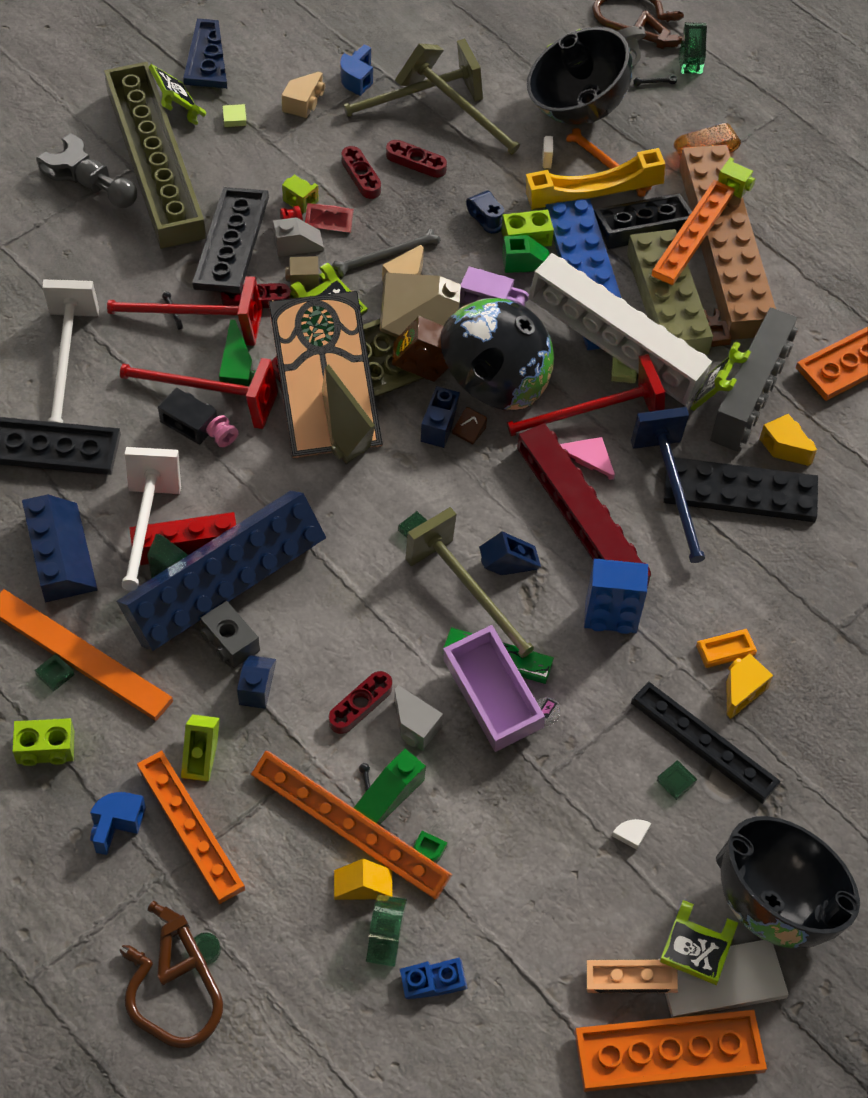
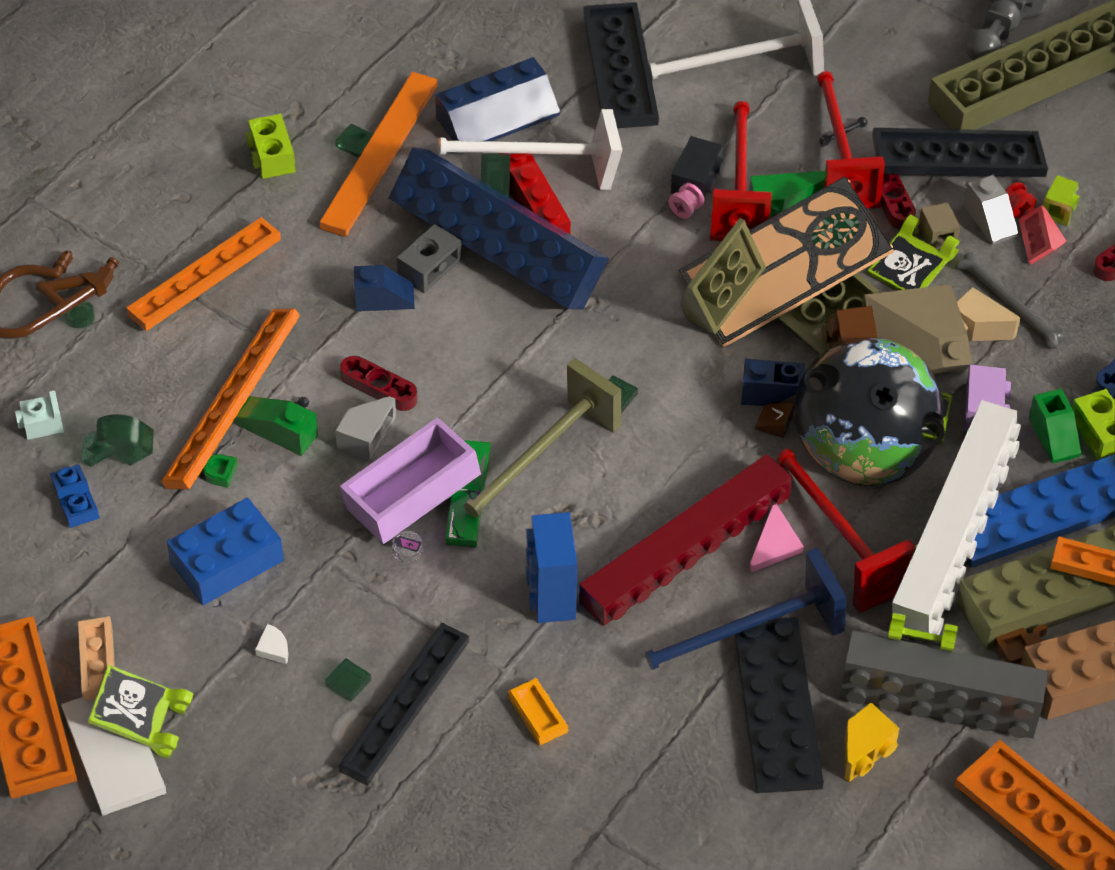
camera: 80 degrees right, 5 degrees down
(113, 812) = (201, 212): blue brick -> none
(199, 747) = (293, 260): lime slope -> none
(333, 984) = (40, 416): none -> light aqua brick
(362, 881) = (170, 423): yellow slope -> none
(509, 555) = (600, 480): dark blue slope -> none
(532, 852) = (225, 551): none -> blue brick
(745, 683) = (484, 727): yellow slope -> none
(786, 883) = (239, 760): black piece -> none

